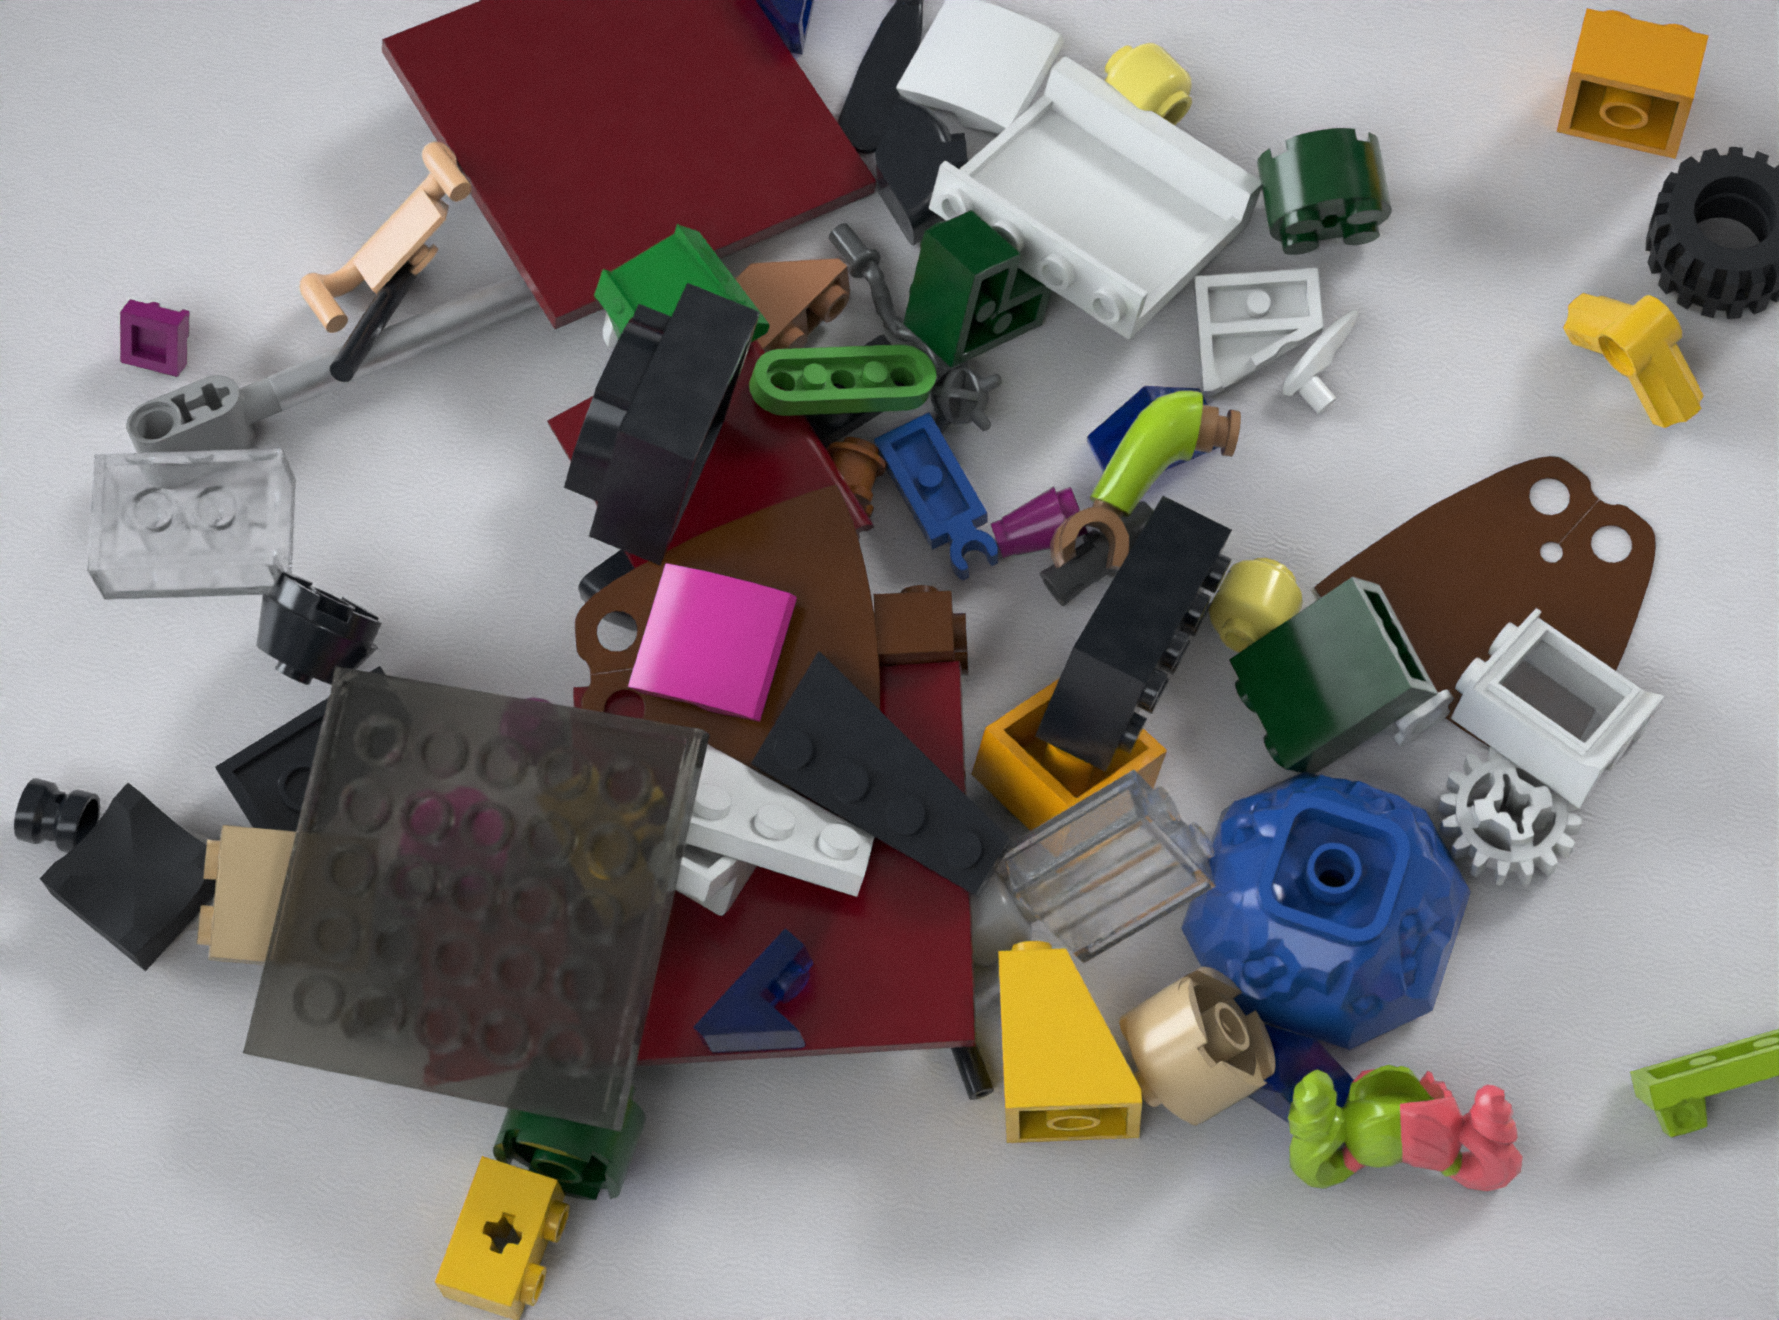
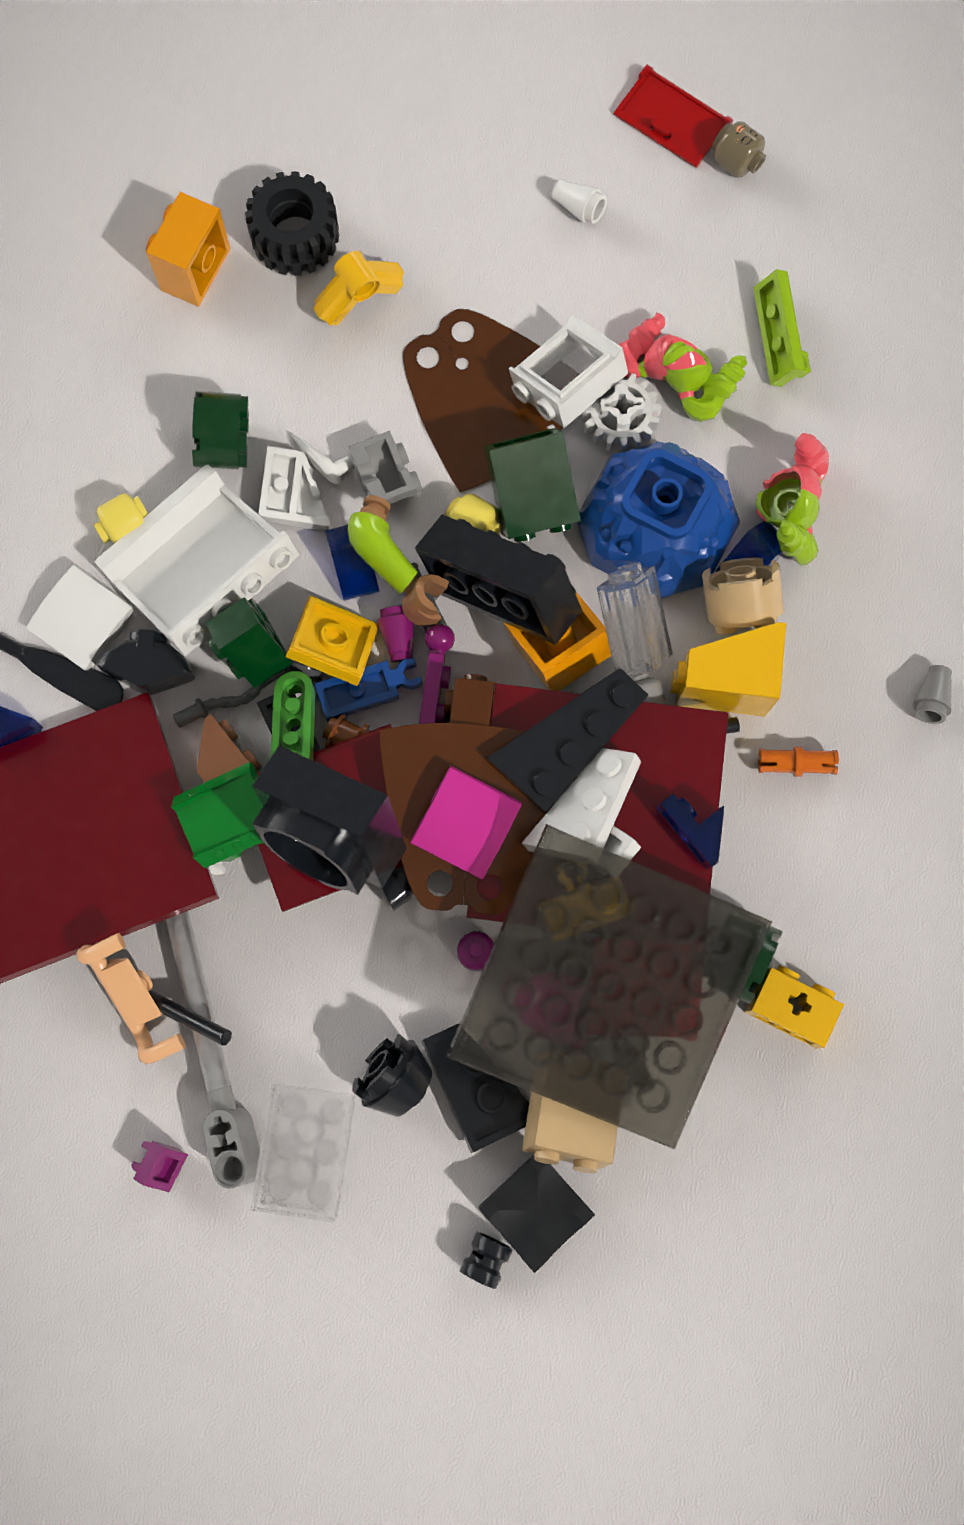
camera: 90 degrees left, 10 degrees up
(928, 1199) = (798, 761): none -> orange pin
(974, 585) = (439, 640): none -> magenta plate
(1001, 421) = (332, 640): none -> yellow tile
(1314, 453) = (383, 469): none -> light grey cylinder
(1619, 901) = (682, 368): none -> hair

